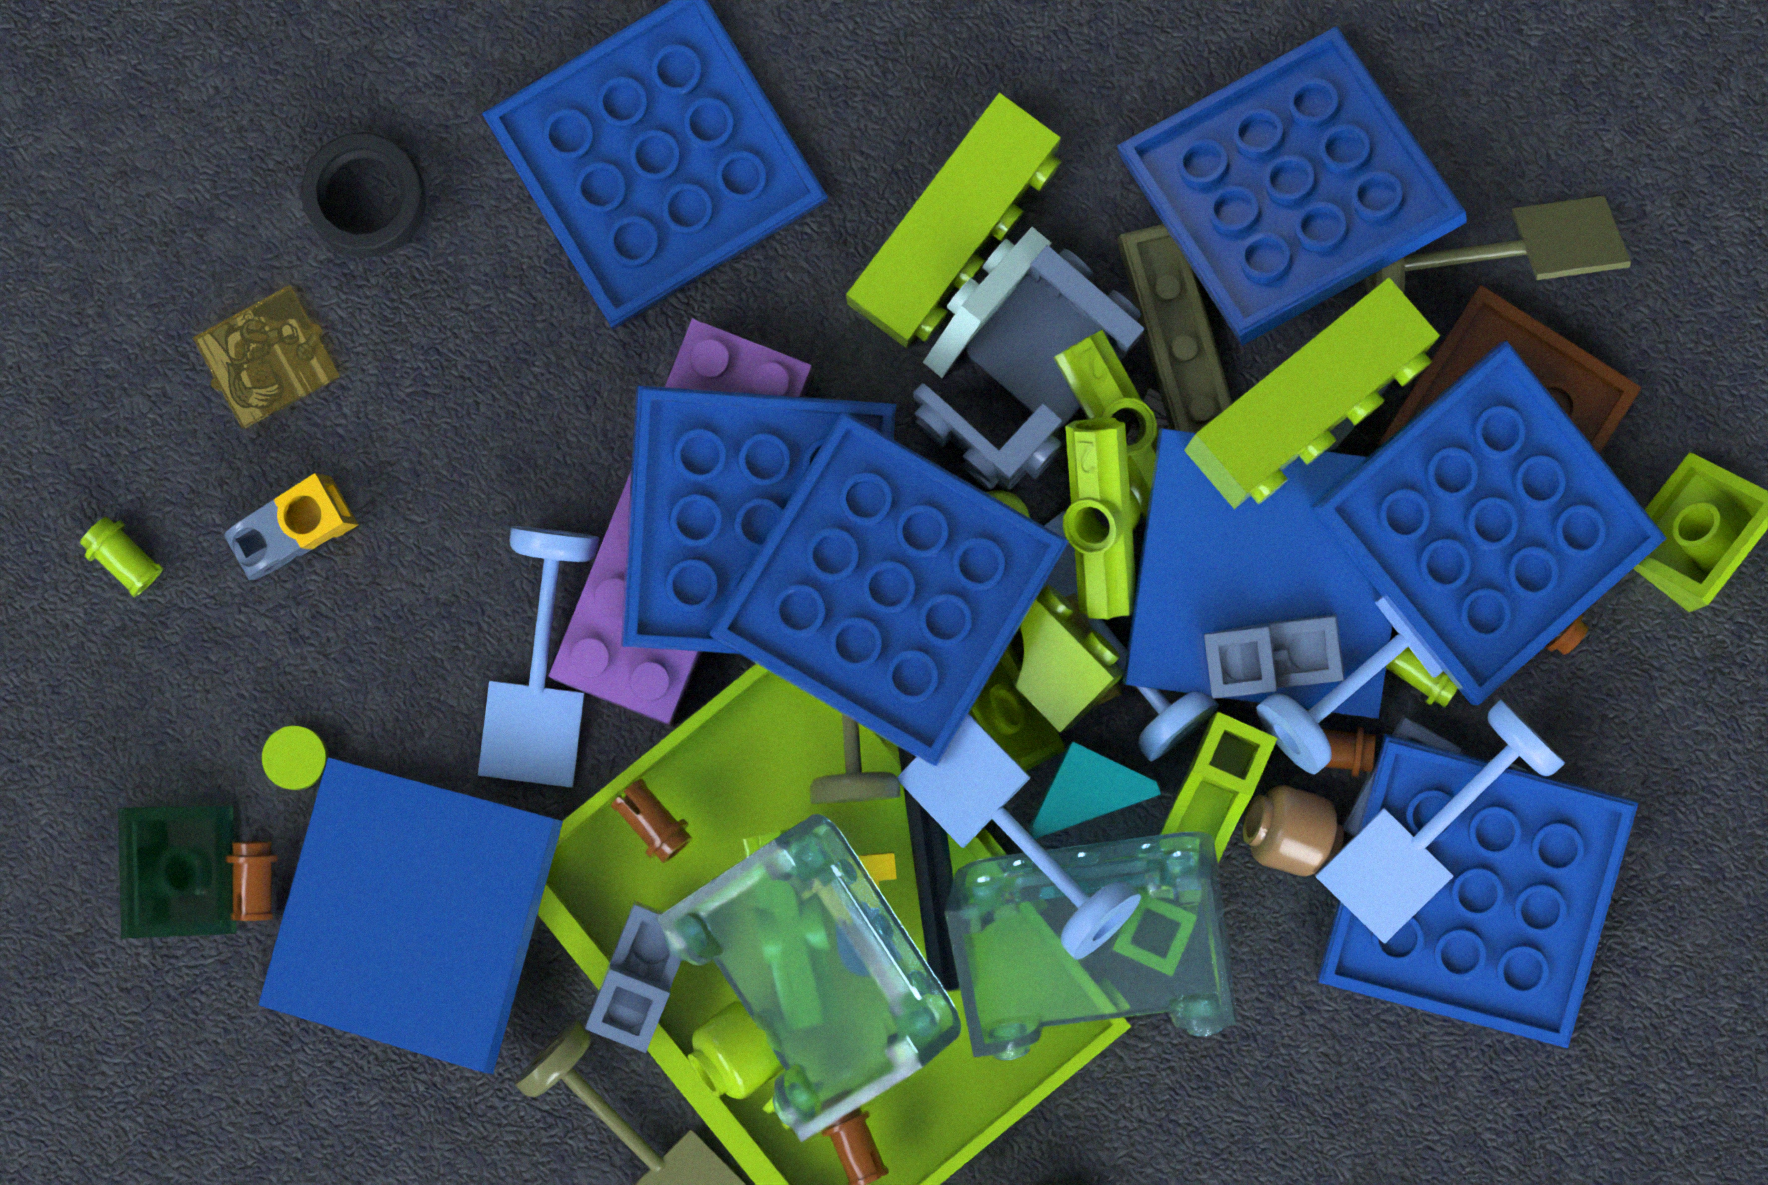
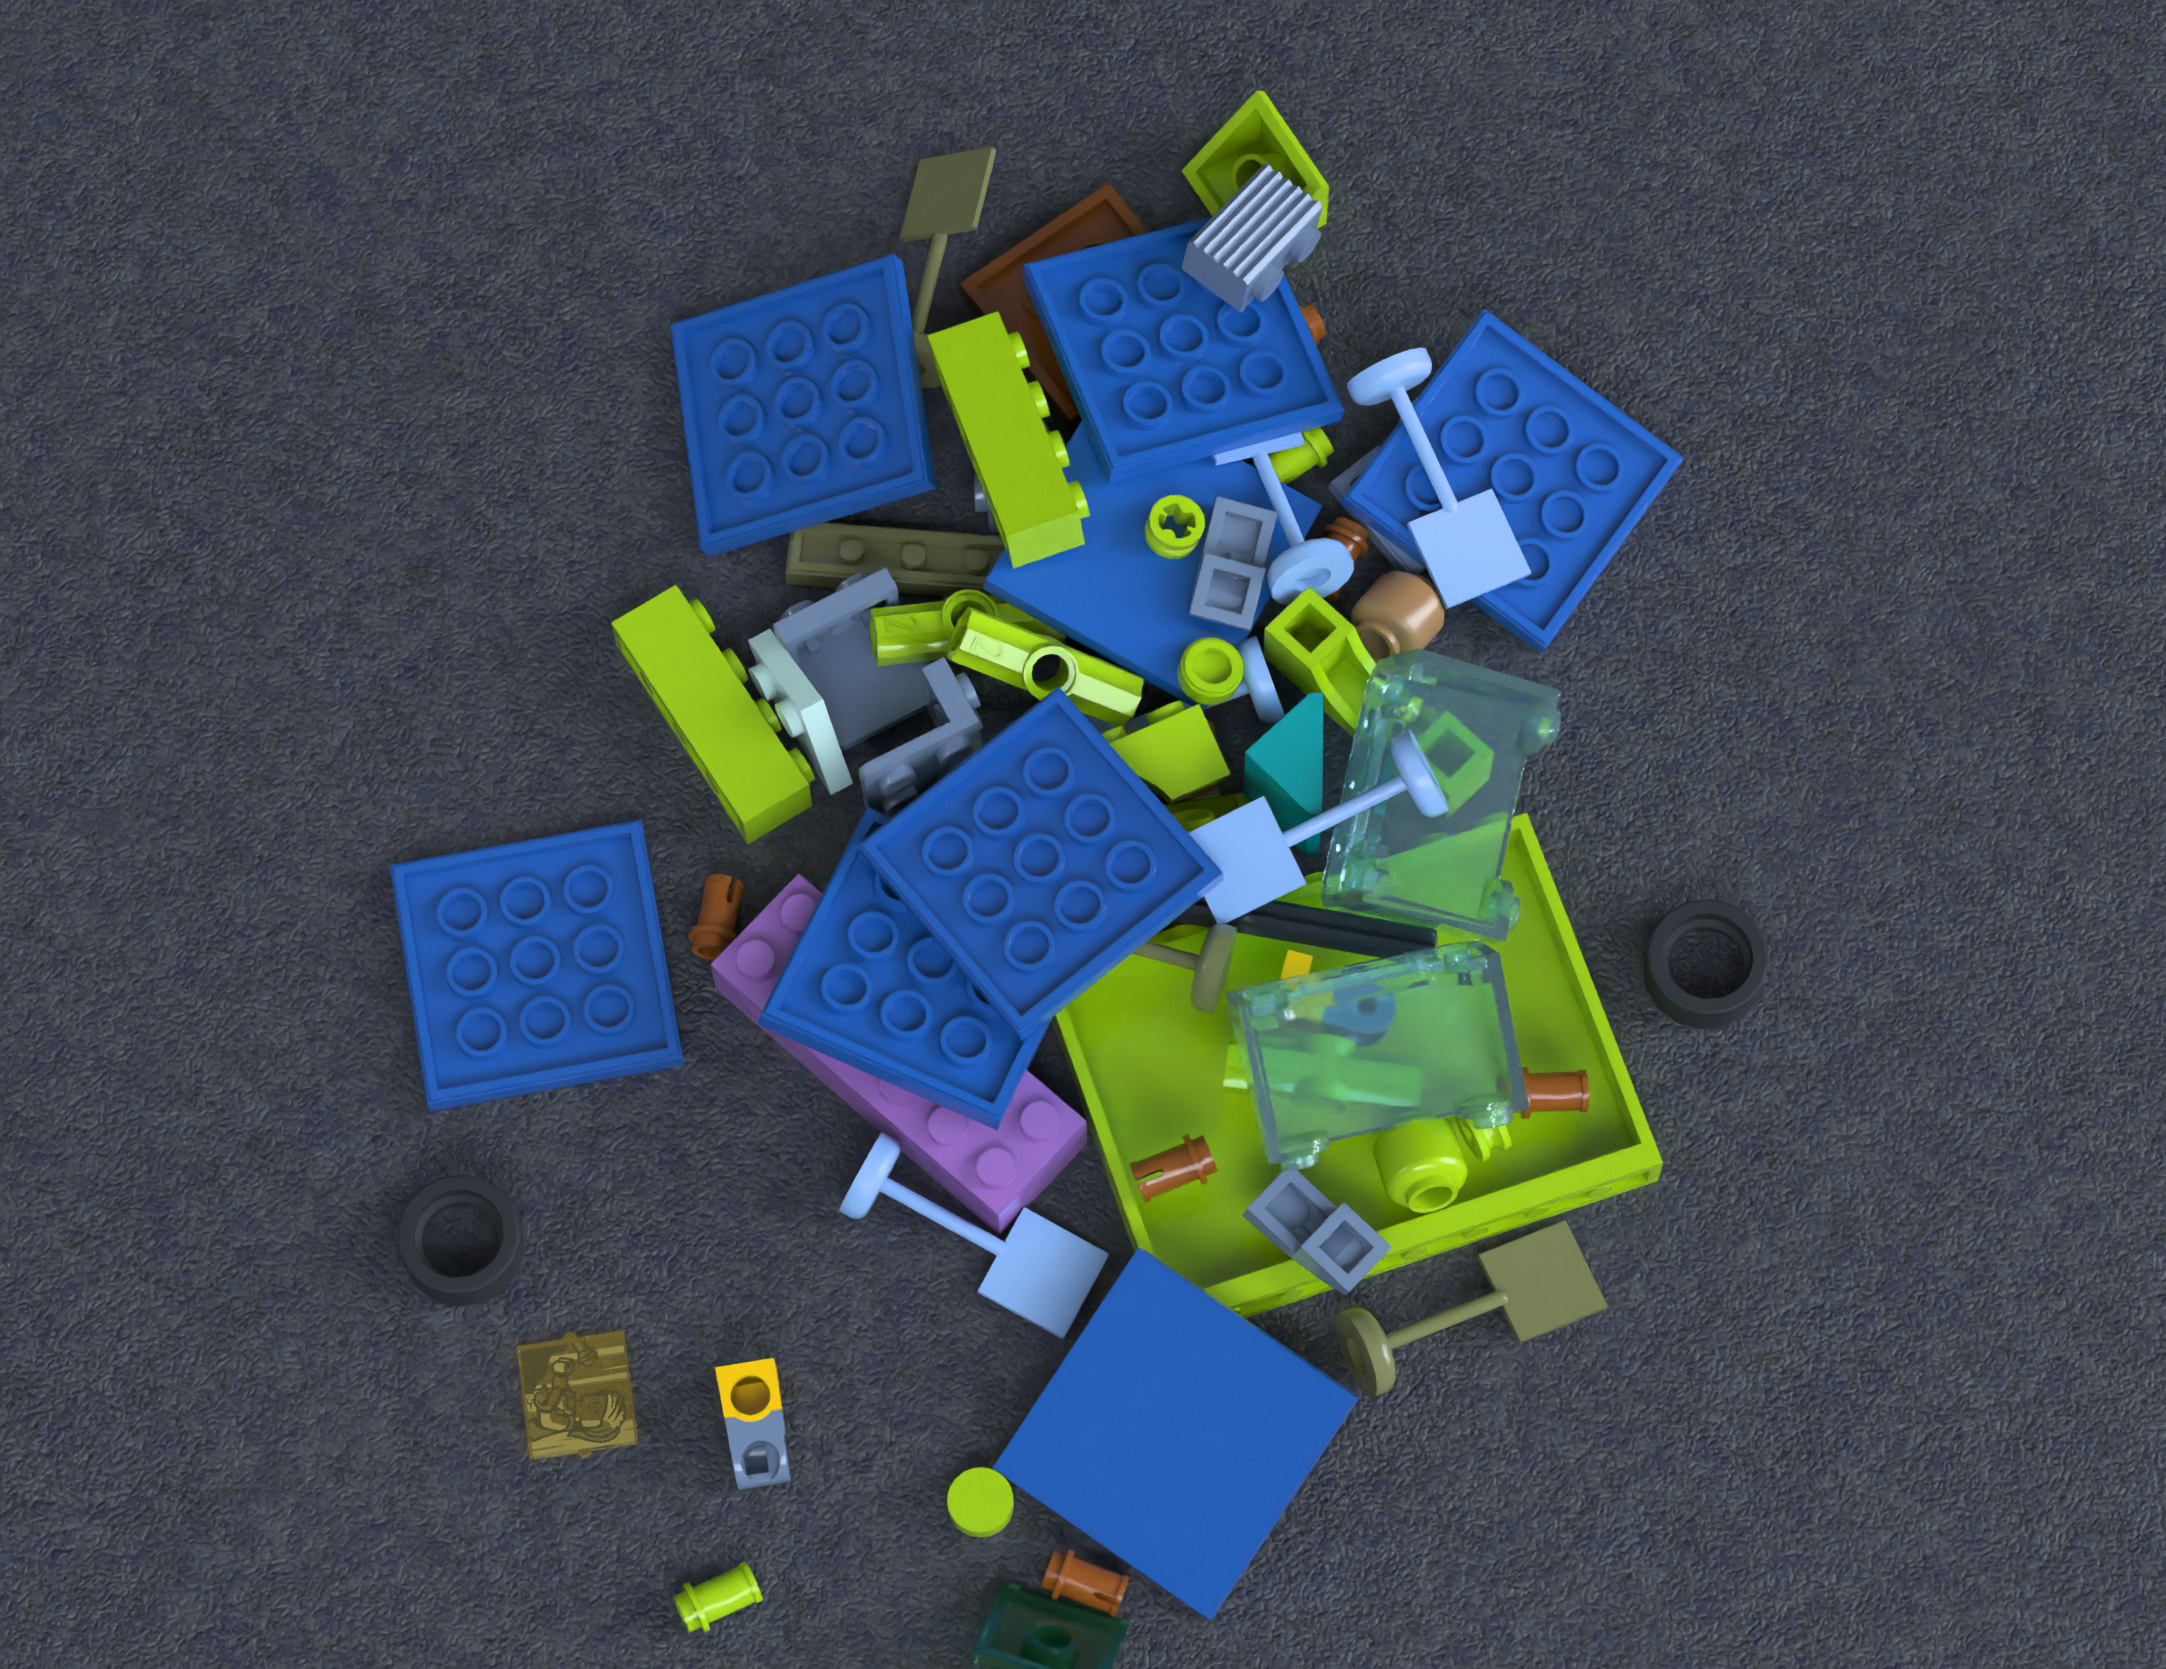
camera: 70 degrees left, 15 degrees down
(757, 305) = (716, 916): none -> dark orange pin
(1157, 675) = (1210, 671): none -> lime tile
(1309, 589) = (1164, 541): none -> lime bush
(1619, 553) = (1253, 238): none -> sand blue brick

